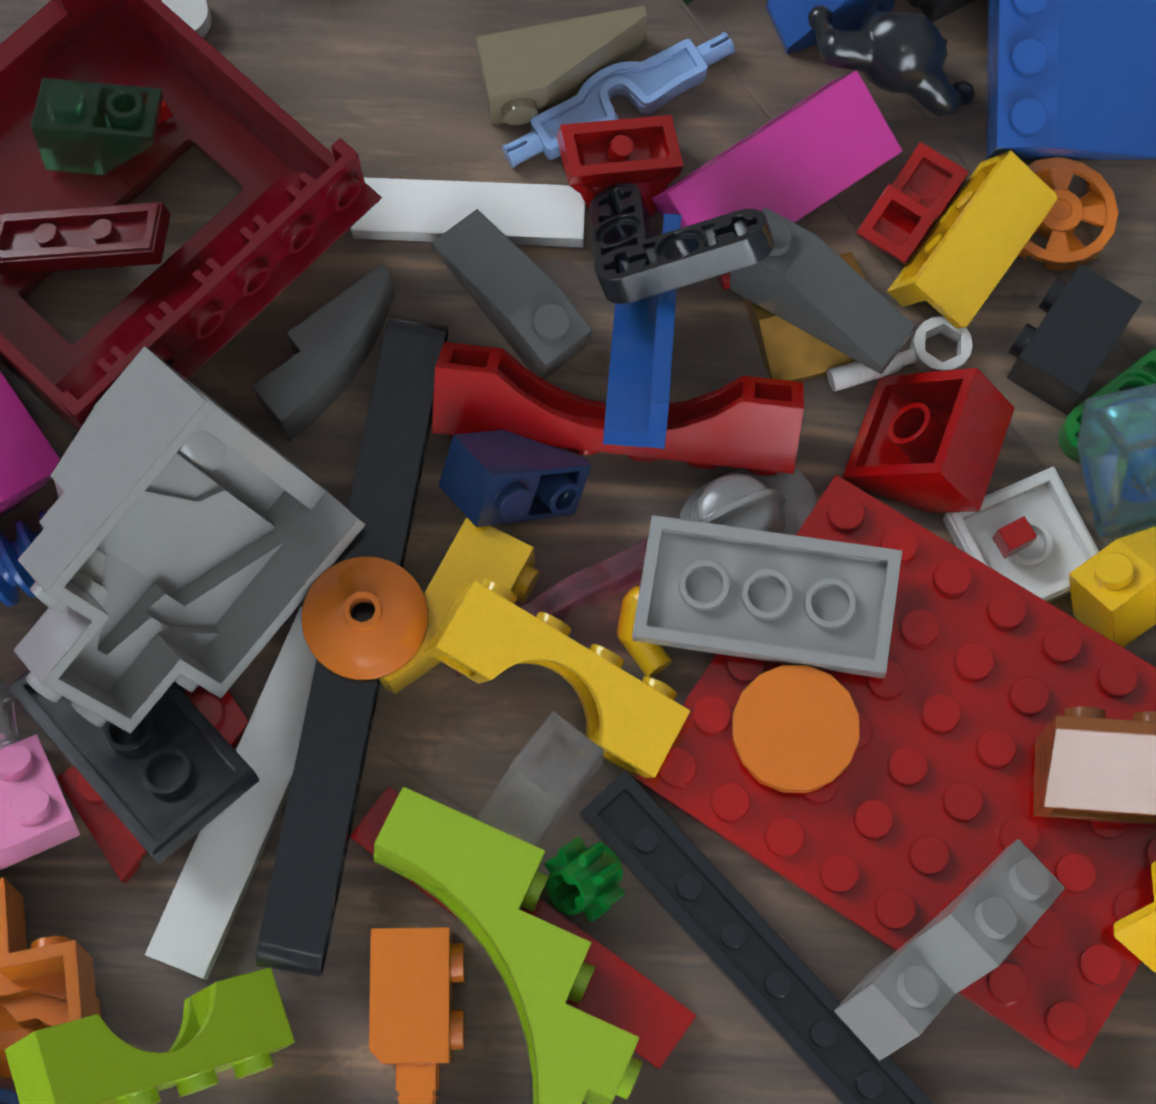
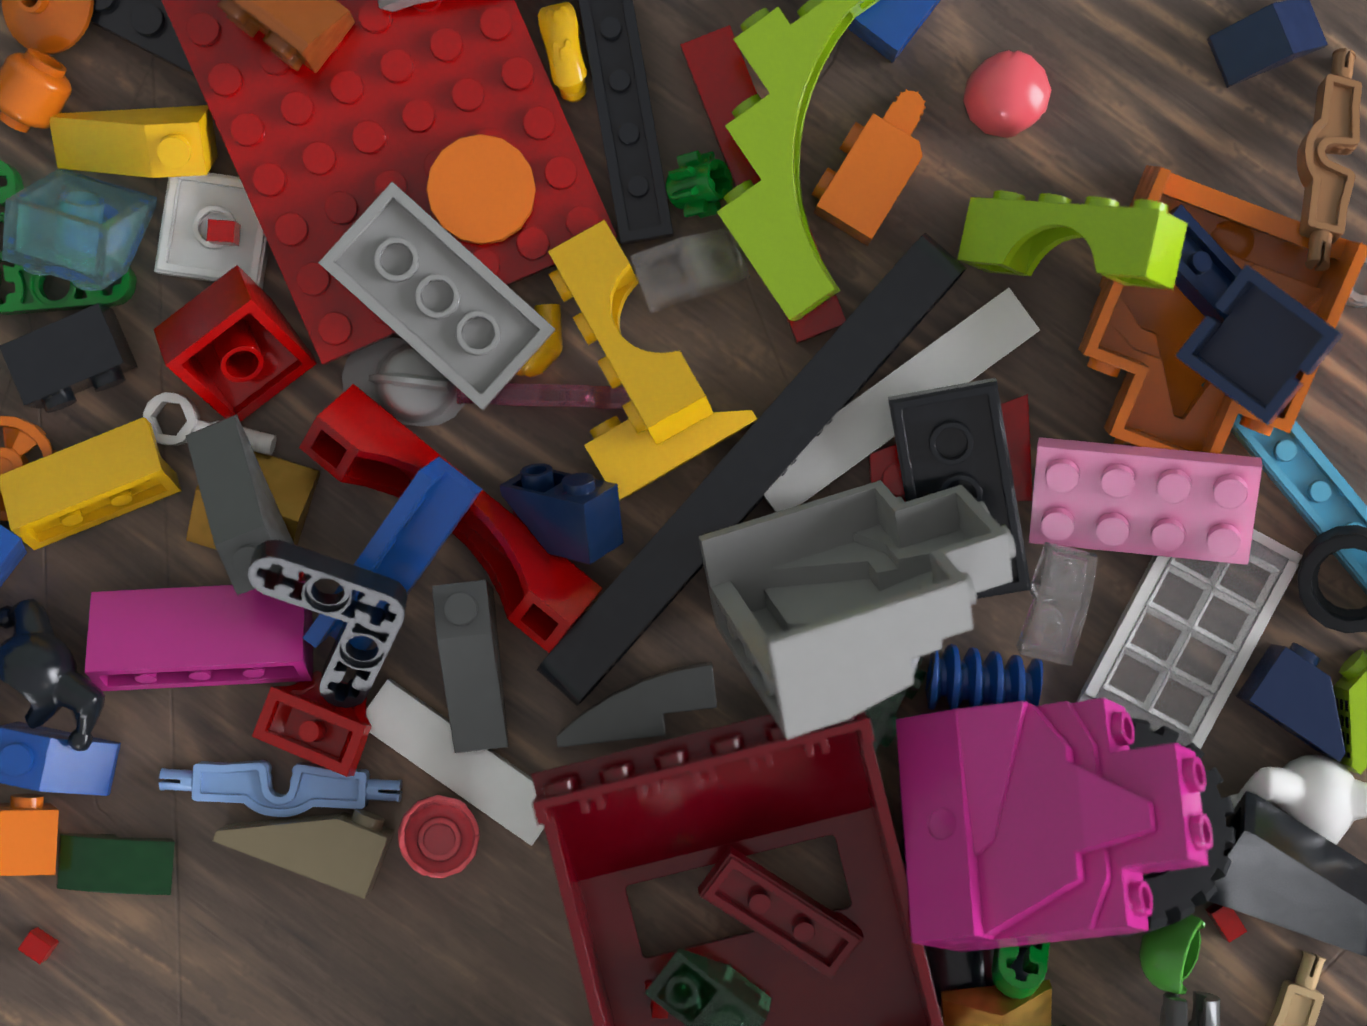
camera: 150 degrees left, 15 degrees up
(369, 647) = (744, 497): orange dish -> none
(445, 132) = (438, 836): none -> coral hair
(821, 940) = (561, 40): none -> yellow piece
(912, 203) = (112, 547): red slope -> none

